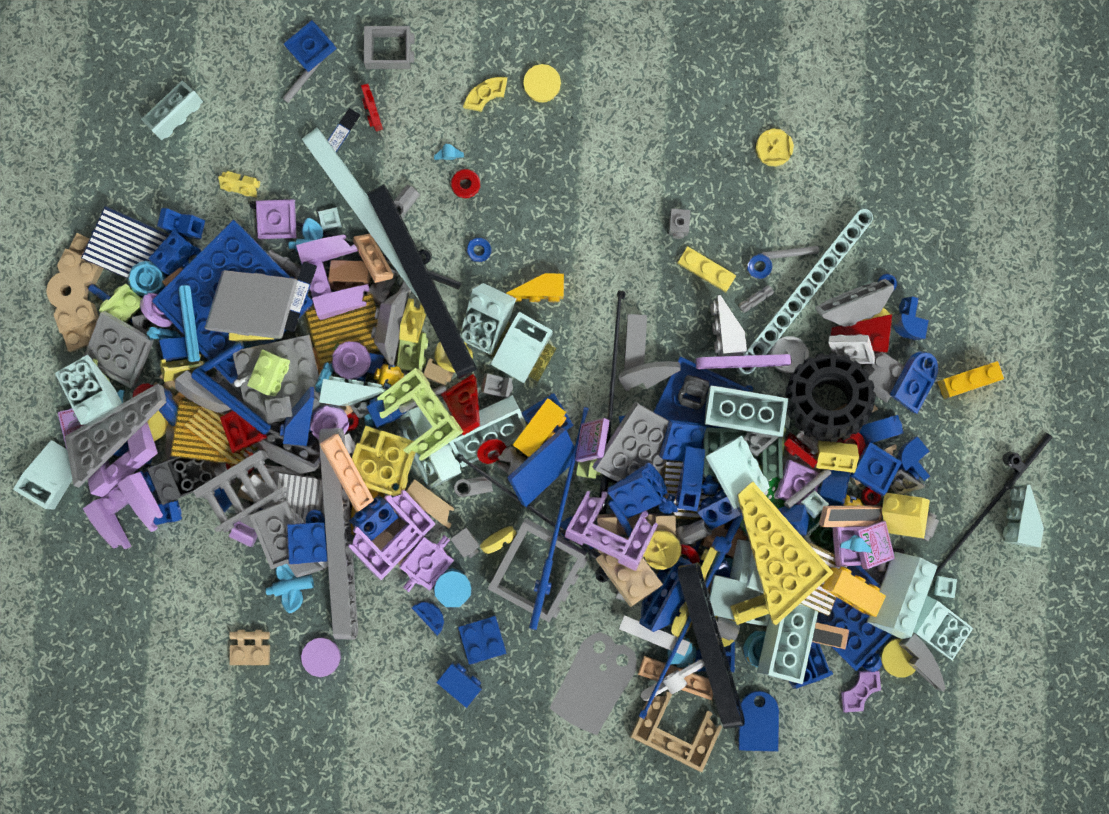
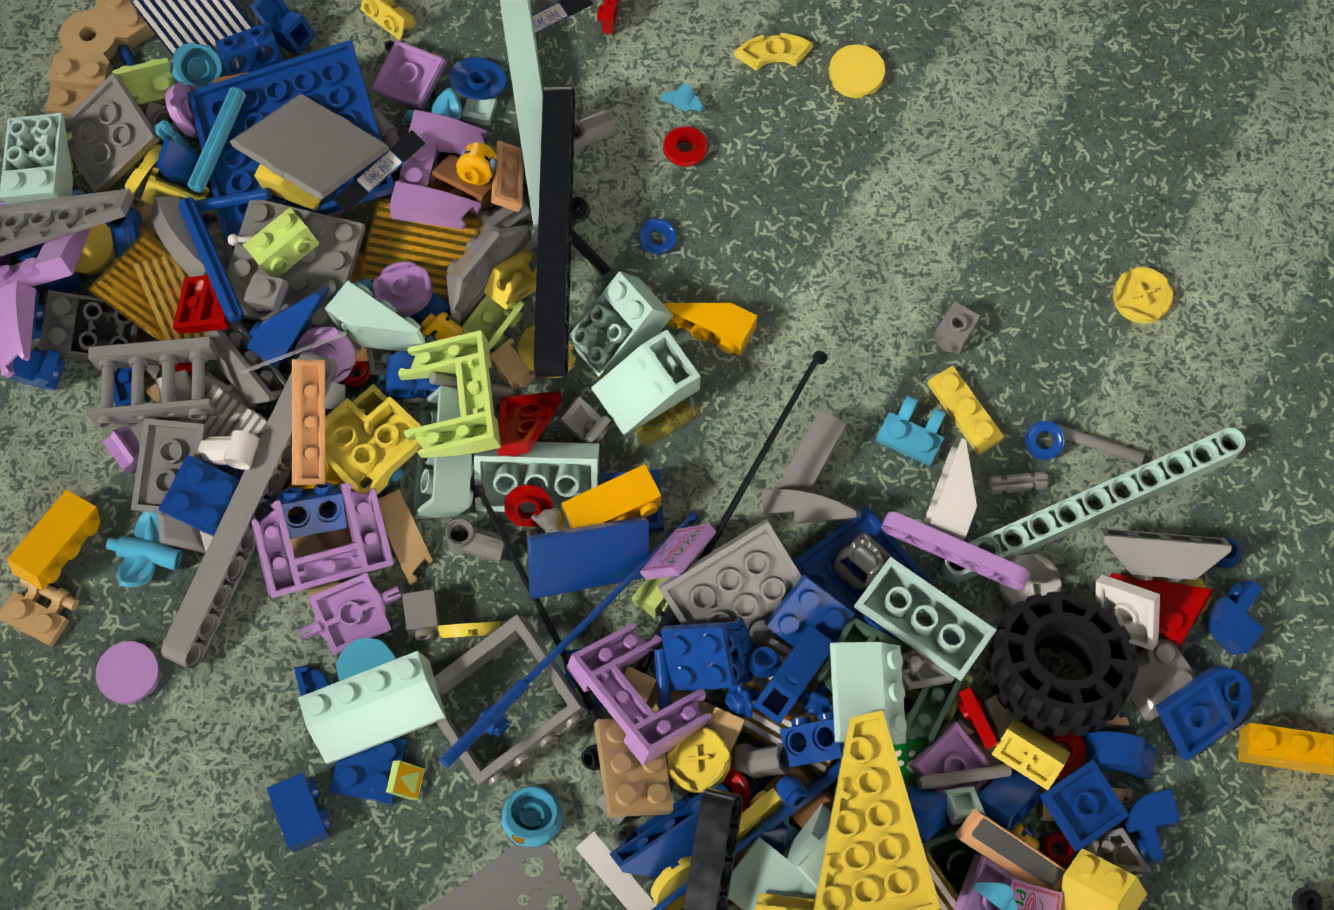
camera: 30 degrees right, 15 degrees down
(155, 362) = (141, 174): none -> light yellow tile
(237, 607) = (54, 540): none -> yellow brick
(312, 436) = (293, 352): none -> white sticker
(312, 509) = (231, 450): none -> white piece
(319, 195) = (478, 78): none -> blue dish
(352, 261) = (478, 162): none -> yellow head
(470, 611) = (372, 707): none -> light aqua slope
(507, 638) = (405, 780): none -> tile
(584, 621) = (532, 816): none -> medium azure hat
(670, 478) = (763, 662): none -> blue plate
(684, 302) = (910, 438): none -> medium azure plate

